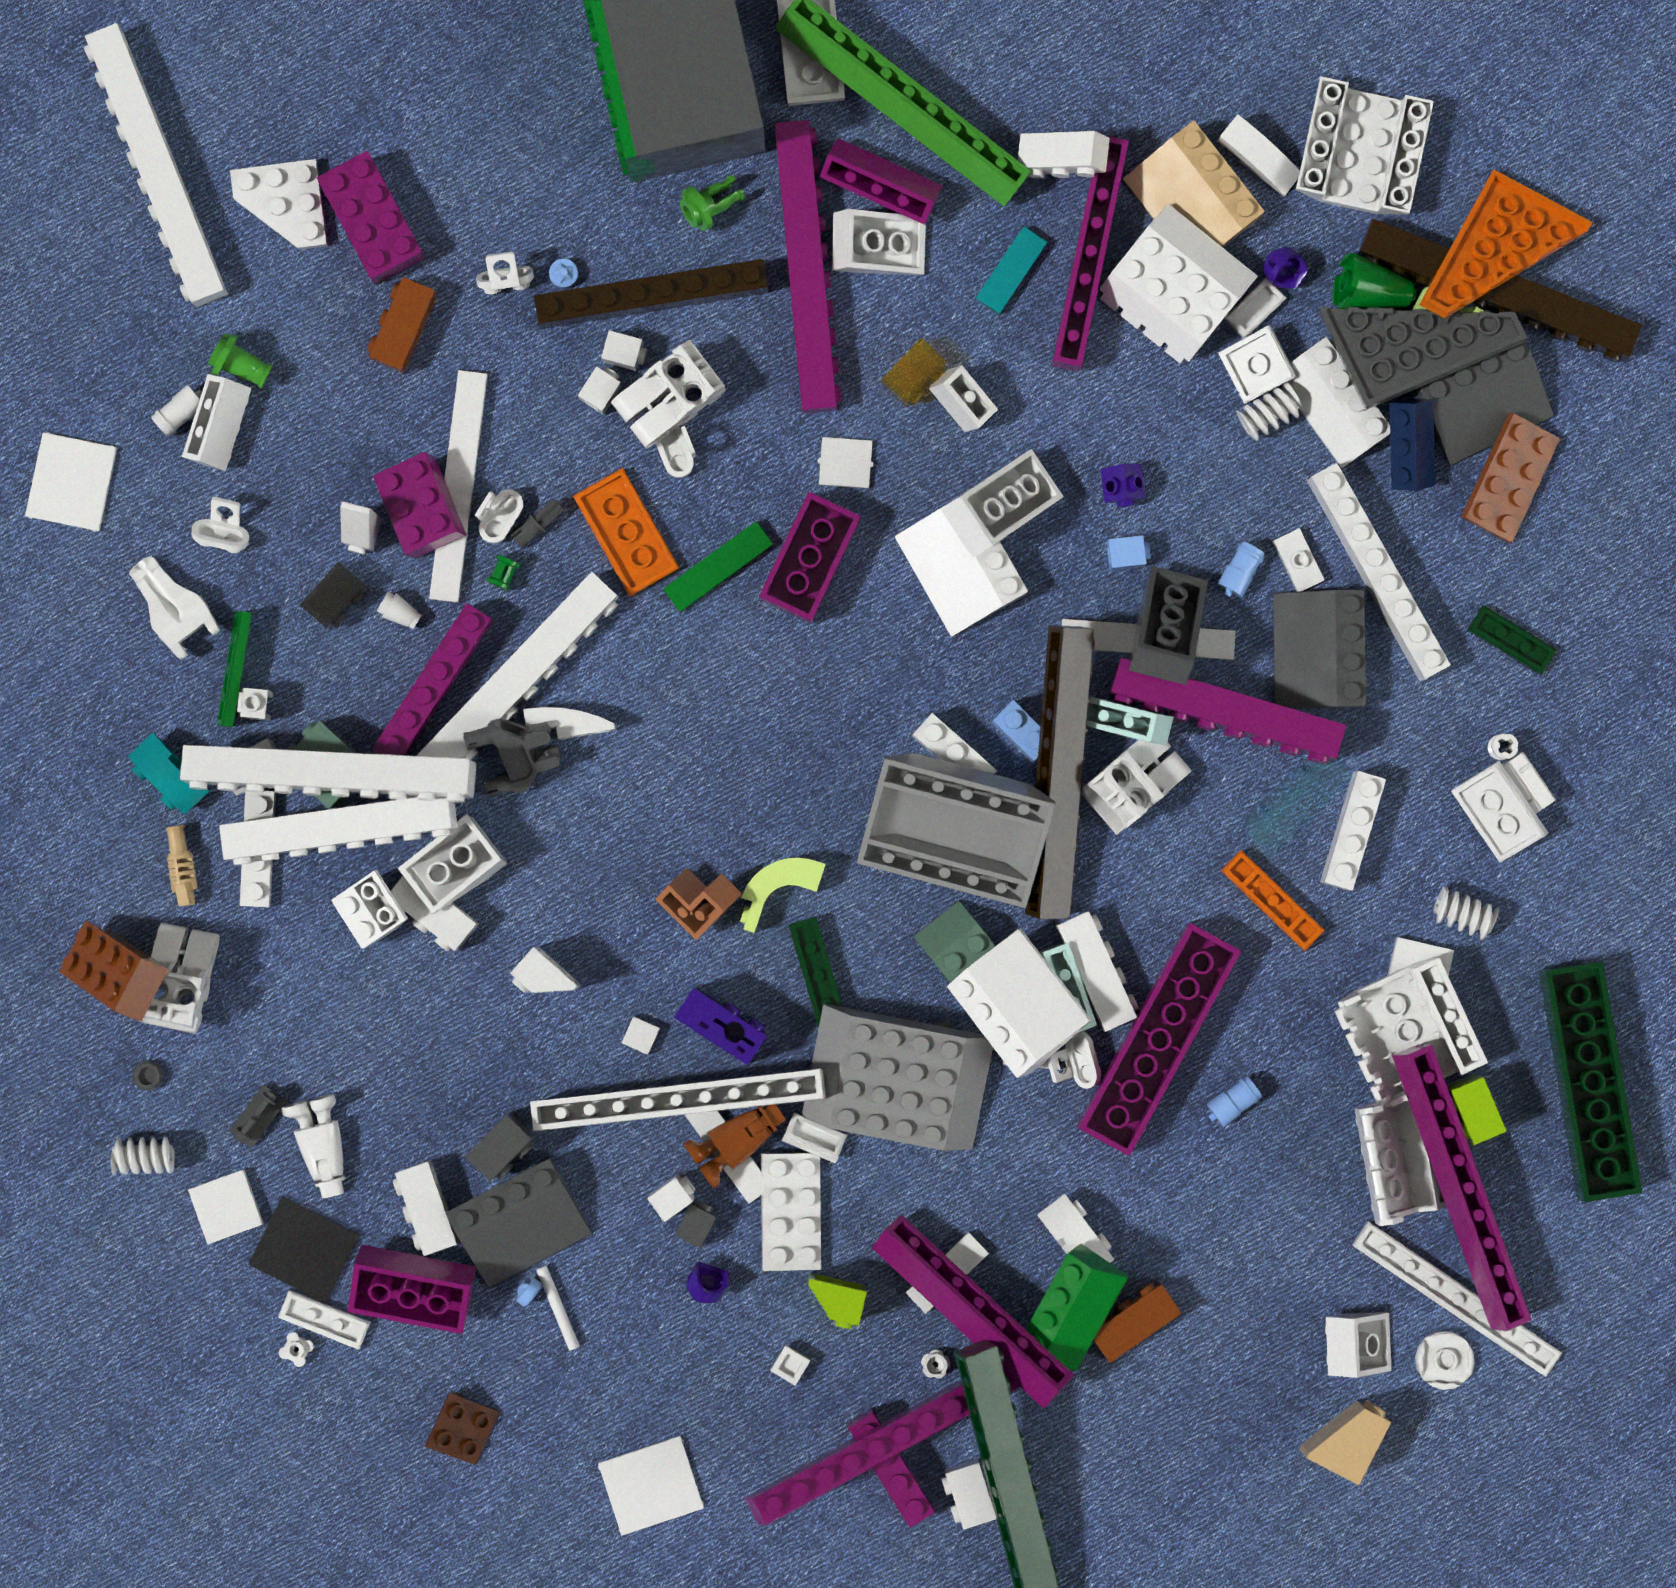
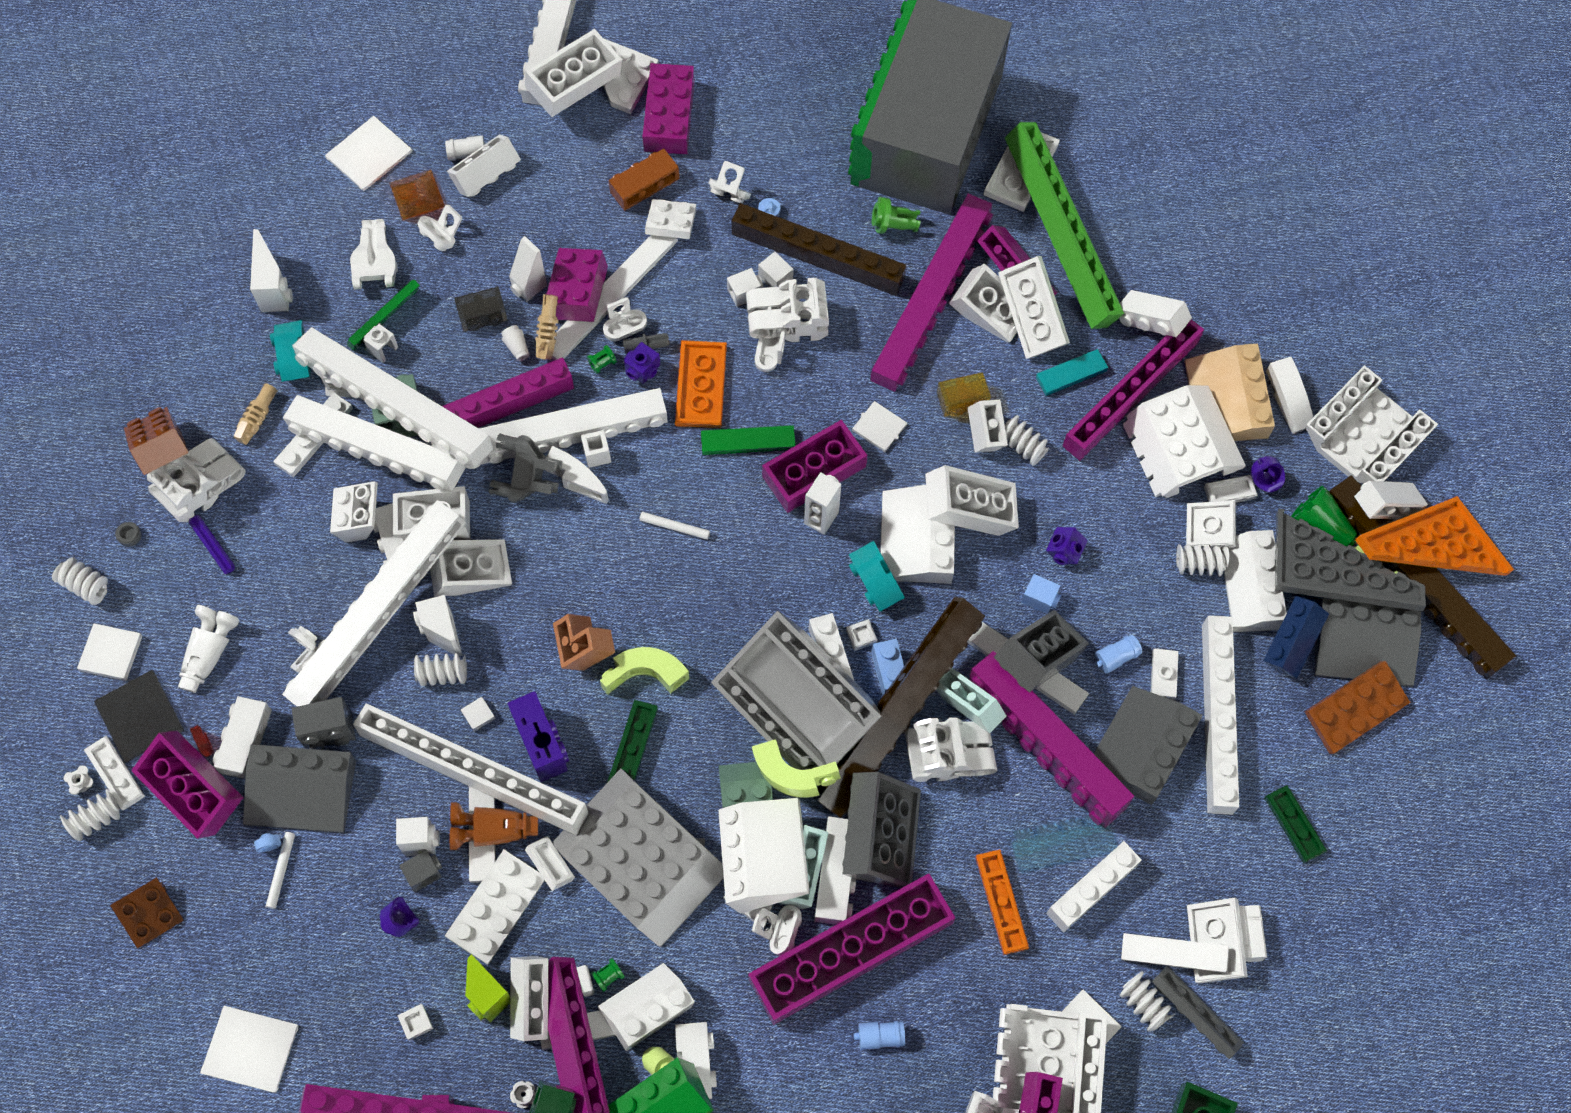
camera: 35 degrees right, 20 degrees down
(87, 713) = (267, 282): none -> white slope
(161, 499) = (416, 194): none -> clear orange slope
(237, 361) = (520, 134): bright green piece -> none
(241, 249) = (573, 72): none -> white brick
(242, 1032) = (211, 544): none -> dark purple axle
(257, 1116) = (177, 604): dark grey hinge -> none
(339, 1376) = (91, 816): none -> white piece
(389, 1236) = (202, 740): none -> clear red tile
(422, 1075) = (307, 640): none -> white bracket
(426, 579) = (545, 340): none -> tan hinge
(465, 356) = (670, 219): none -> white plate
(468, 999) = (375, 606): none -> white brick
(526, 890) = (471, 567): none -> white slope
(551, 542) = (641, 363): none -> dark purple brick
(569, 682) = (596, 448): none -> white brick
(574, 1017) = (440, 670): none -> white piece
(703, 711) = (674, 525): none -> white bar
(849, 599) = (822, 503): none -> white brick
(886, 1279) = (529, 998): none -> white brick
(924, 1226) = (585, 981): none -> white tile
(931, 227) = (1033, 307): none -> white plate
(941, 1207) = (607, 974): none -> green bush
(949, 642) = (876, 576): none -> teal brick
(970, 709) = (861, 635): none -> white tile
(983, 918) = (788, 779): none -> yellowish green arch
(998, 1214) = (646, 1006): none -> white slope
(1009, 387) = (1025, 441): none -> white piece
(1044, 1258) = (655, 1059): none -> yellowish green brick
(1118, 908) = (881, 830): none -> dark grey slope
(1429, 226) = (1390, 499): none -> white brick
(1466, 849) = (1175, 953): none -> white tile
(1511, 748) = (1249, 889): white bush -> none
(1518, 892) = (1198, 1012): none -> dark grey plate

